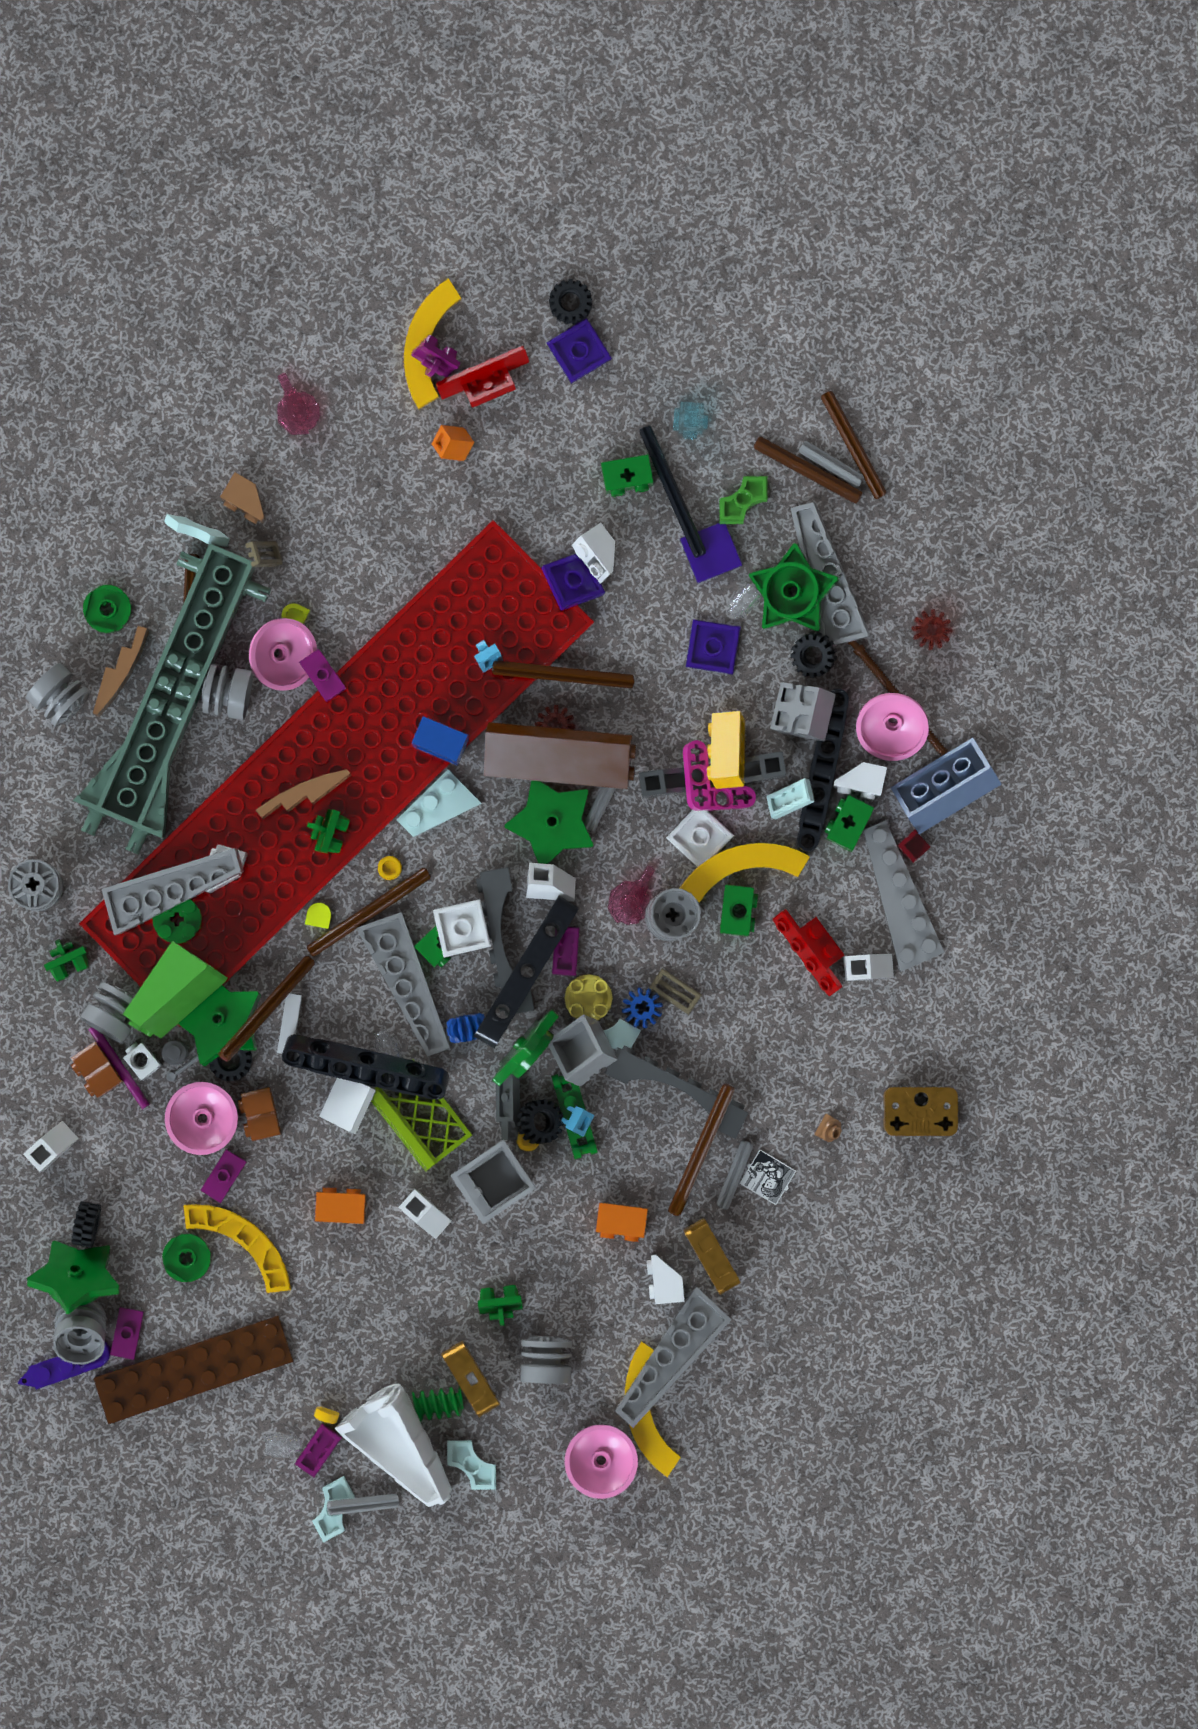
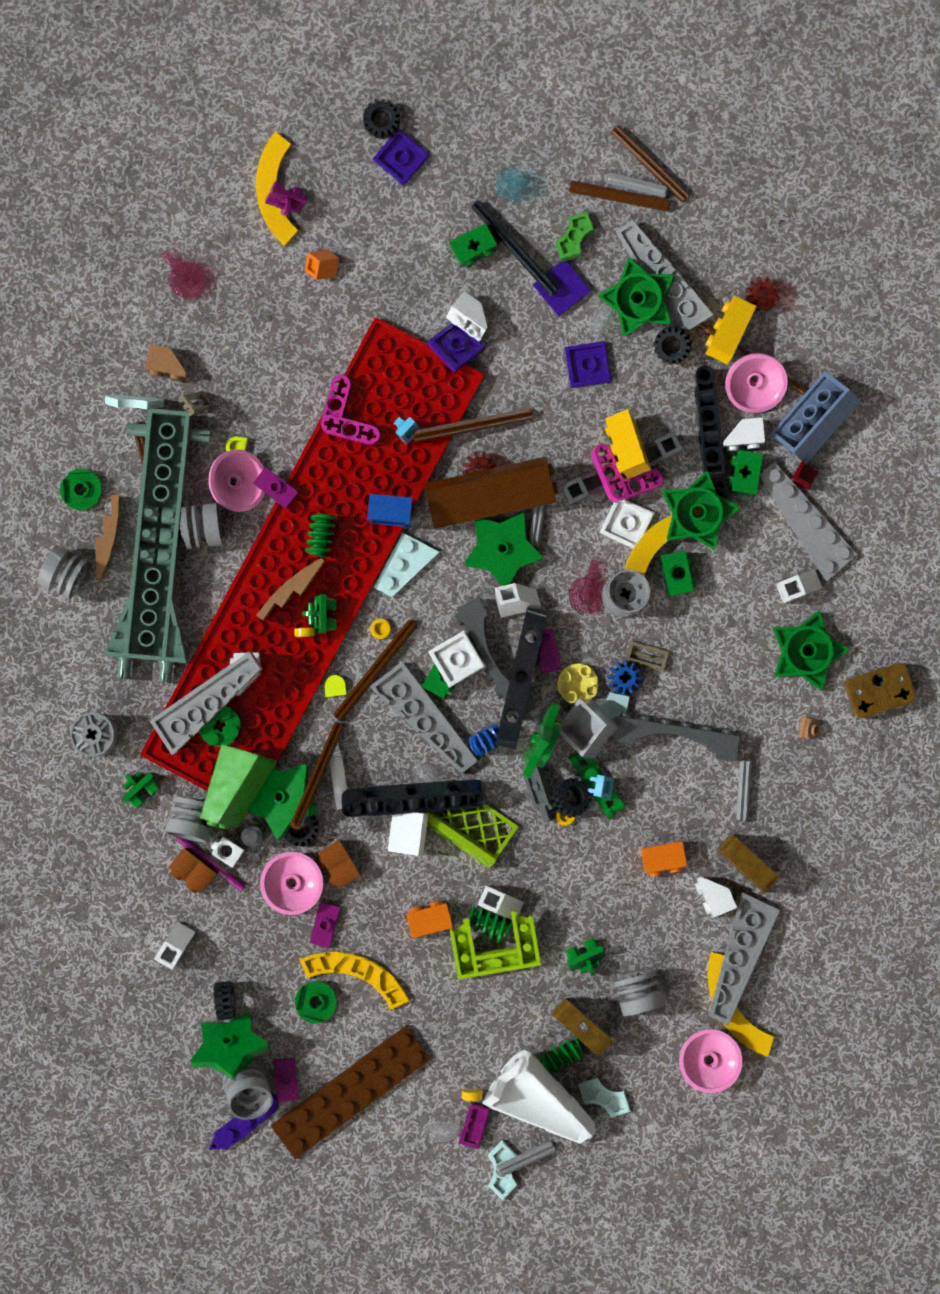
camera: 15 degrees left, 0 degrees up
(303, 845) = (304, 632): none -> yellow tile
(355, 743) = (320, 535): none -> green piece
(373, 1272) = (496, 961): none -> lime wedge
(404, 1232) = (489, 924): none -> green piece
(416, 617) = (337, 416): none -> dark pink beam
(486, 379) = (332, 204): red bracket -> none
(493, 1181) = (549, 859): light grey piece -> none
(701, 1149) = (711, 778): reddish brown axle -> none
(763, 853) = (702, 527): none -> green plate
(767, 1177) = (771, 784): piece -> none
(790, 798) = (691, 468): light aqua plate -> none
(802, 711) = (679, 393): light grey piece -> none
(813, 947) = (749, 584): red bracket -> none
(872, 1046) = (822, 648): none -> green plate
(881, 657) = (729, 329): none -> yellow brick

